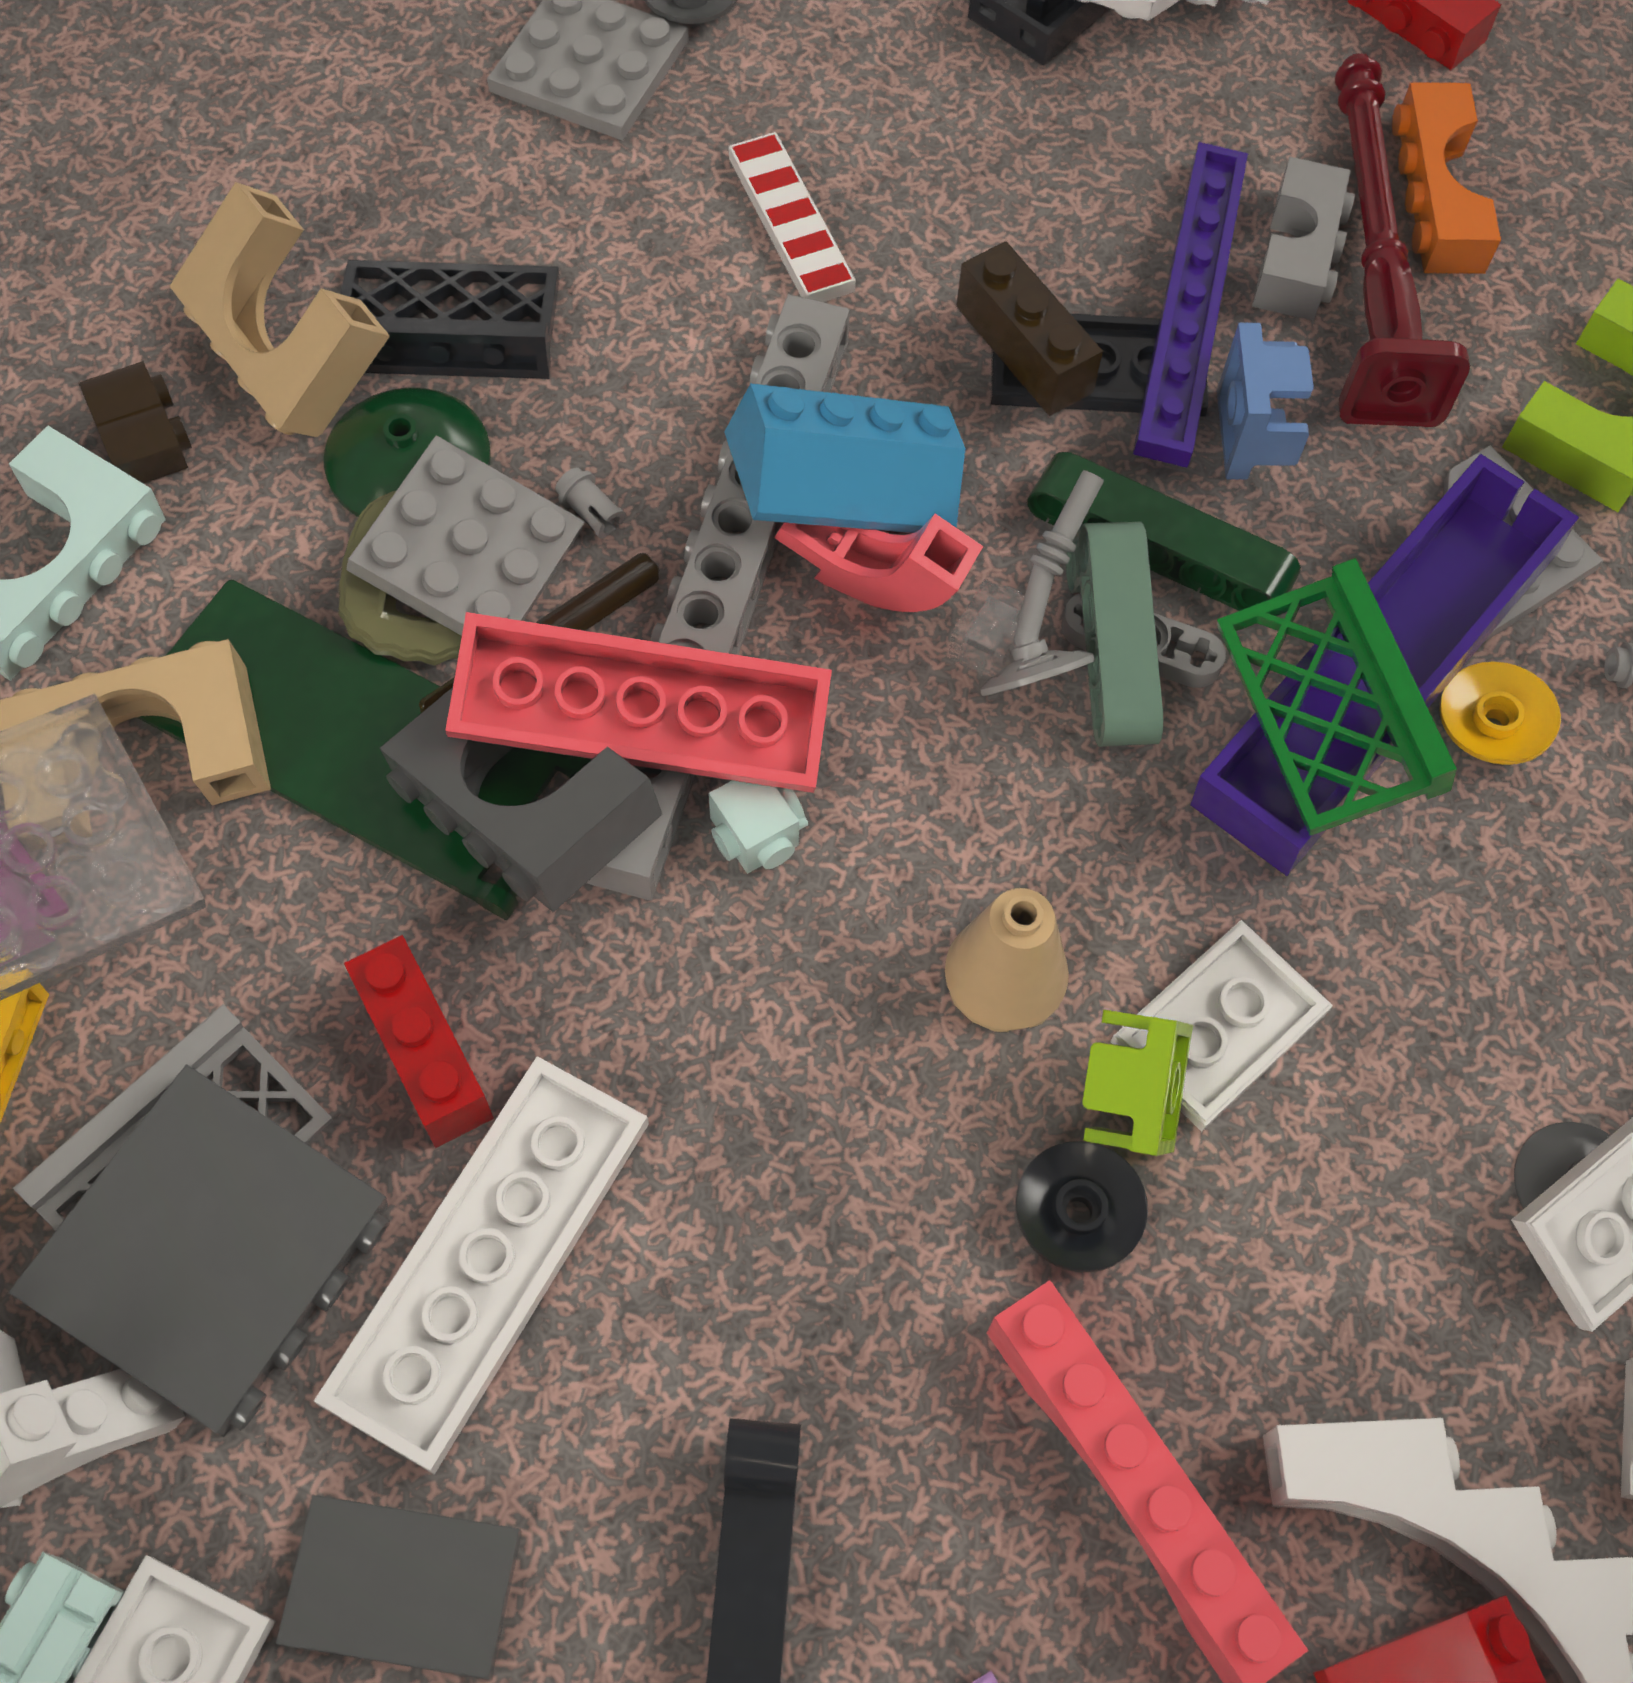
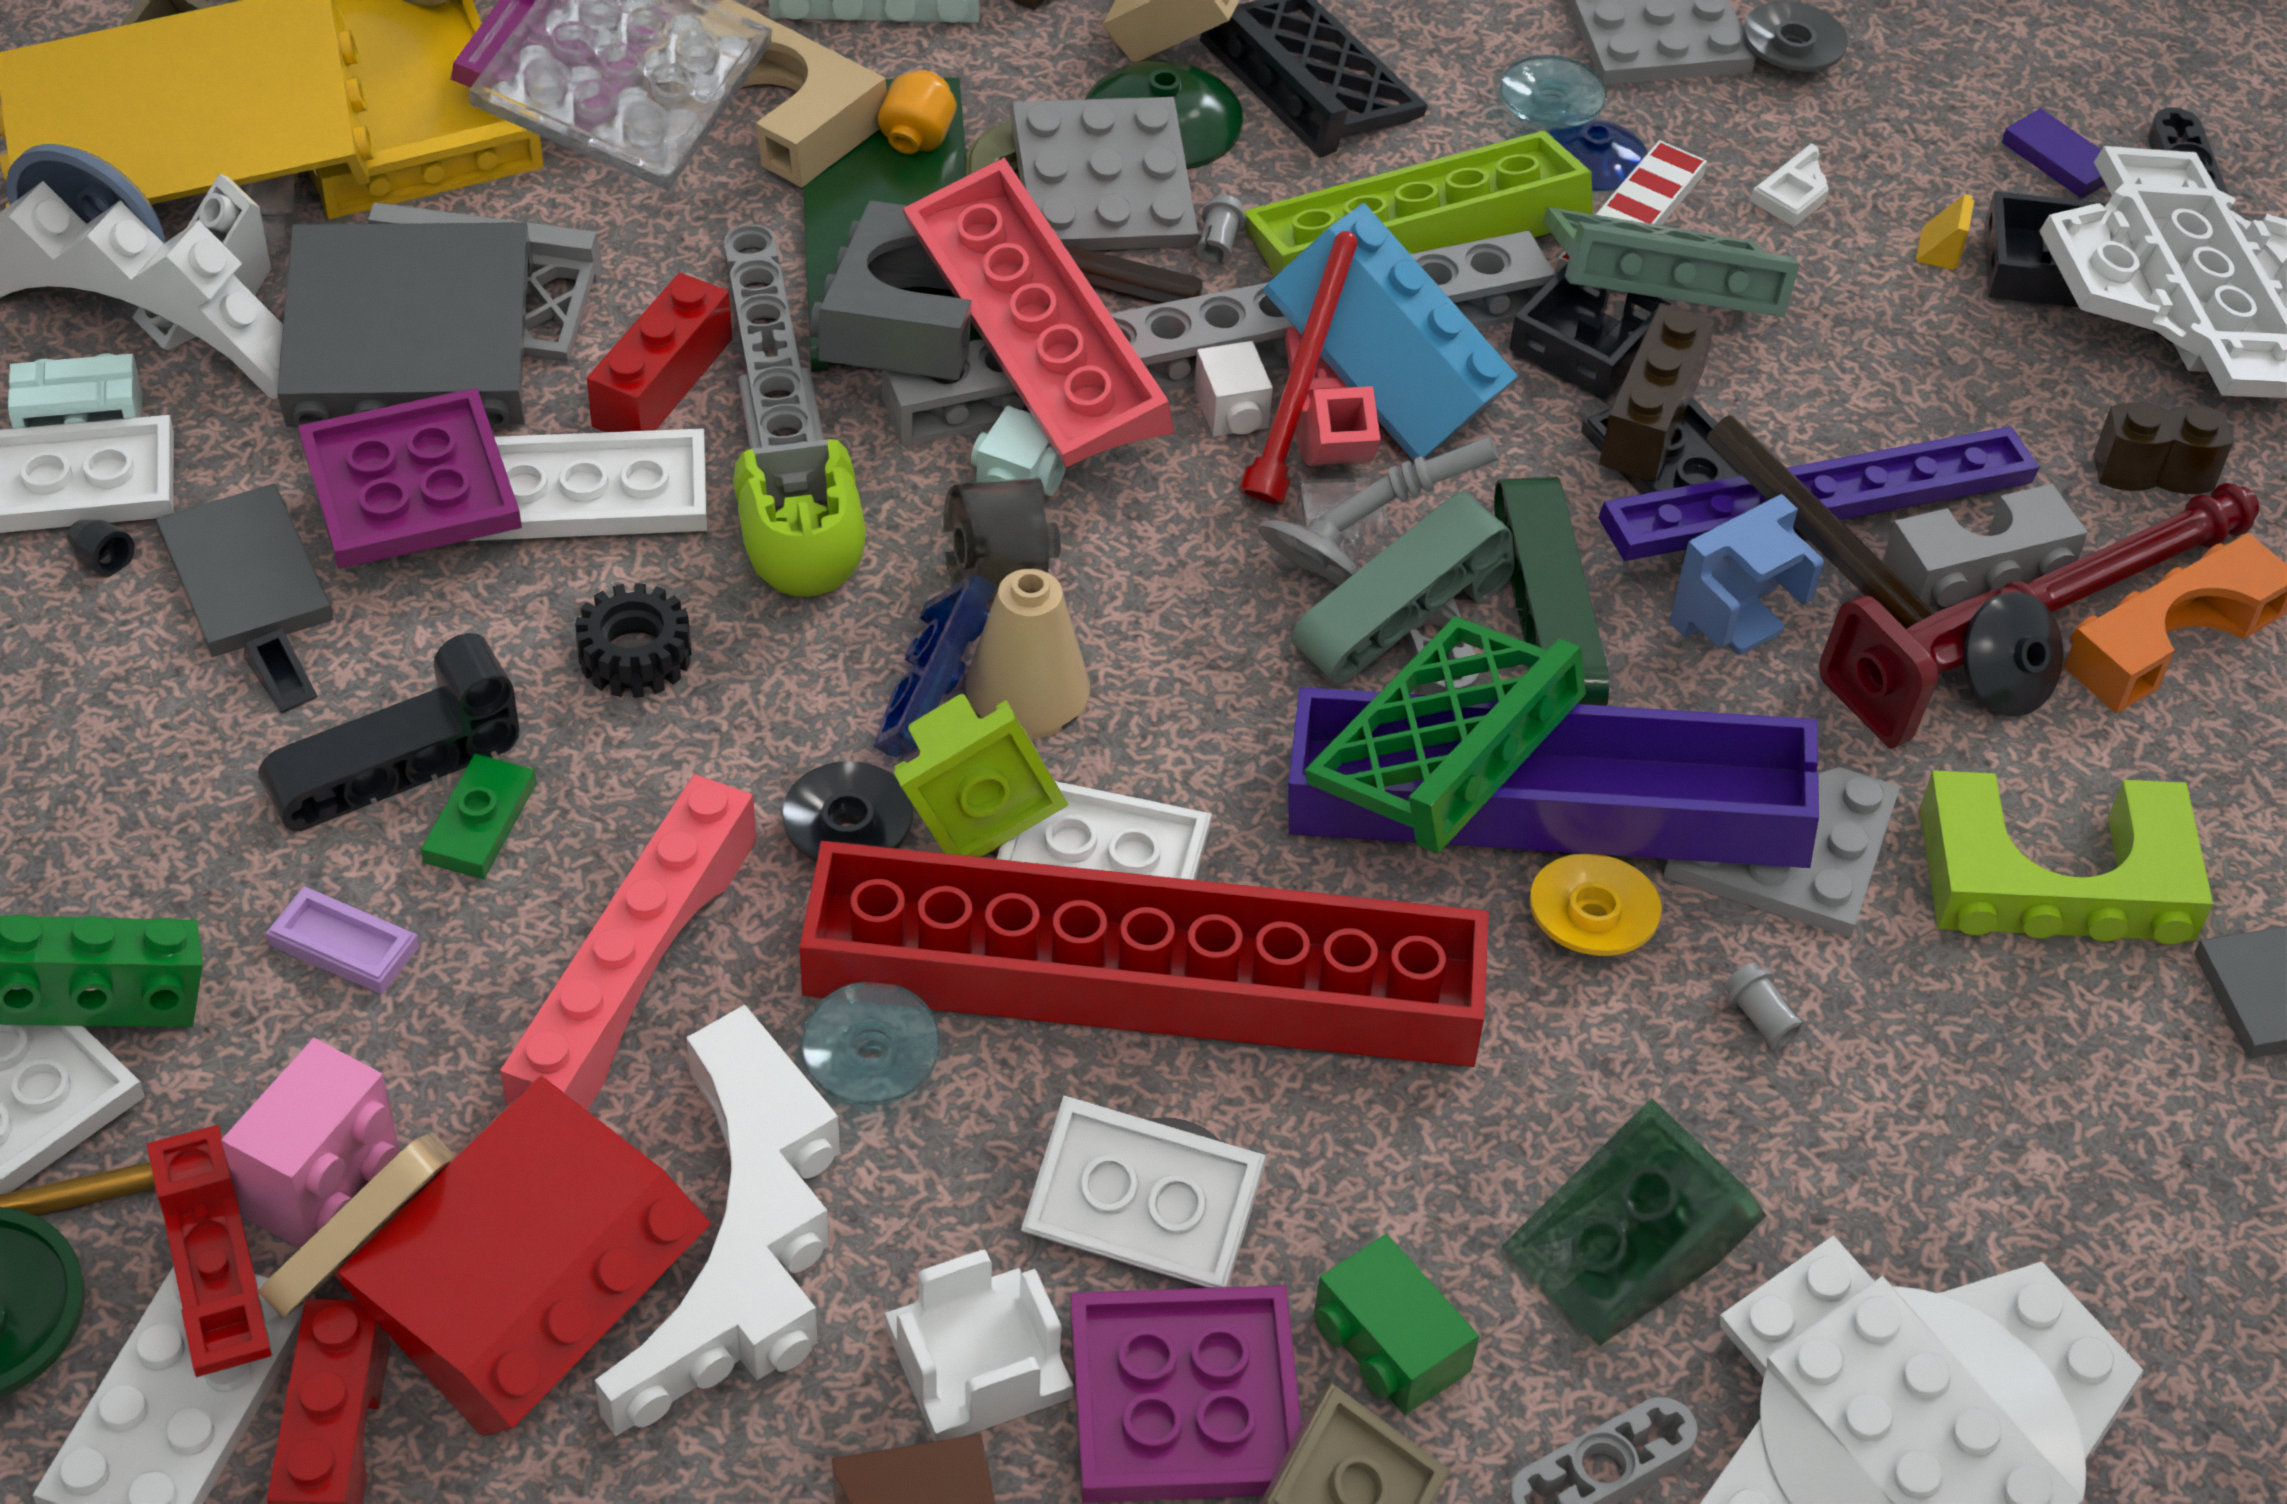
camera: 55 degrees right, 15 degrees down
(272, 639) = (917, 112): none -> light orange head
(428, 1367) = (409, 477): none -> magenta plate
(563, 1623) = (279, 670): none -> black piece
(622, 175) = (1553, 91): none -> clear light blue dish
(686, 354) = (1437, 202): none -> lime arch
(697, 197) = (1604, 149): none -> clear blue dish
(743, 1230) = (633, 614): none -> black tyre
(764, 1055) = (793, 469): none -> piece
(792, 610) = (1233, 388): none -> white brick
(841, 100) = (1794, 188): none -> white tile
(863, 896) = (998, 530): none -> clear smoke brick
(872, 1529) = (479, 816): none -> green plate
(890, 226) = (1672, 263): none -> sand green fence
(908, 648) = (1267, 476): none -> red piece
(911, 338) = (1574, 338): none -> black piece
(961, 1029) = (952, 622): none -> clear blue wing
(970, 43) = (1946, 234): none -> yellow slope
(1222, 320) = (1817, 522): none -> dark brown axle
(1282, 72) = (2163, 448): none -> dark brown brick
(1376, 1078) = (1150, 953): none -> red brick
(1379, 1331) = (871, 1018): none -> clear light blue dish
(1430, 290) = (2013, 654): none -> black dish

